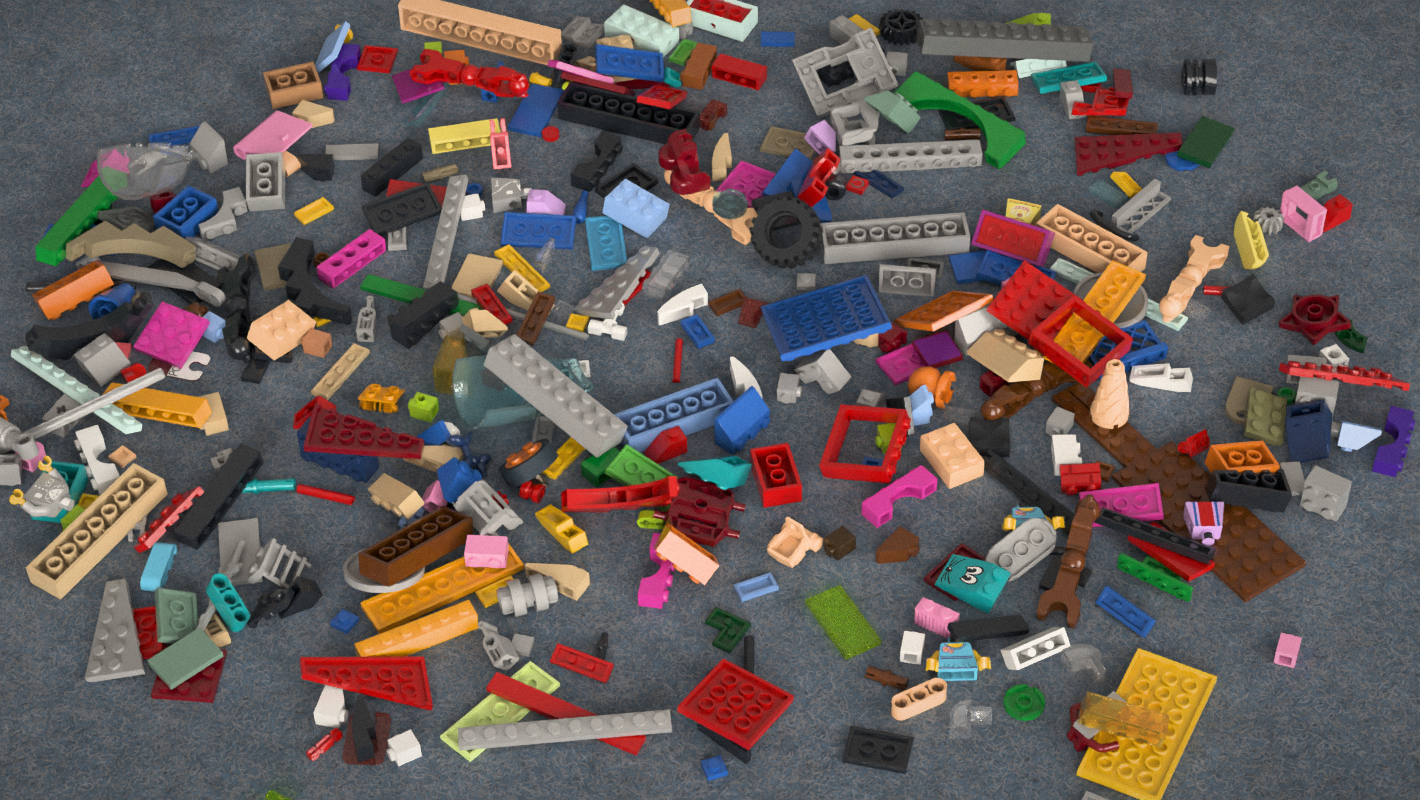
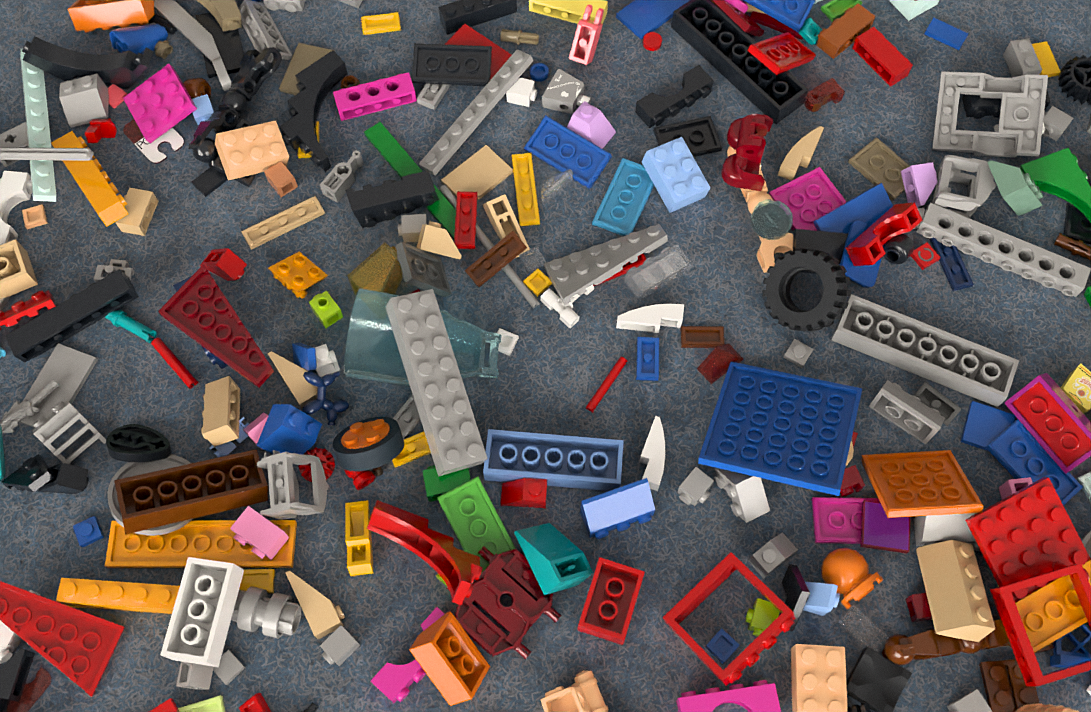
camera: 30 degrees right, 20 degrees up
(342, 549) = (137, 444): none -> black piece
(487, 599) = (202, 612): none -> white brick
(581, 208) = (624, 146): blue piece -> none
(597, 591) = (338, 646): none -> light grey brick

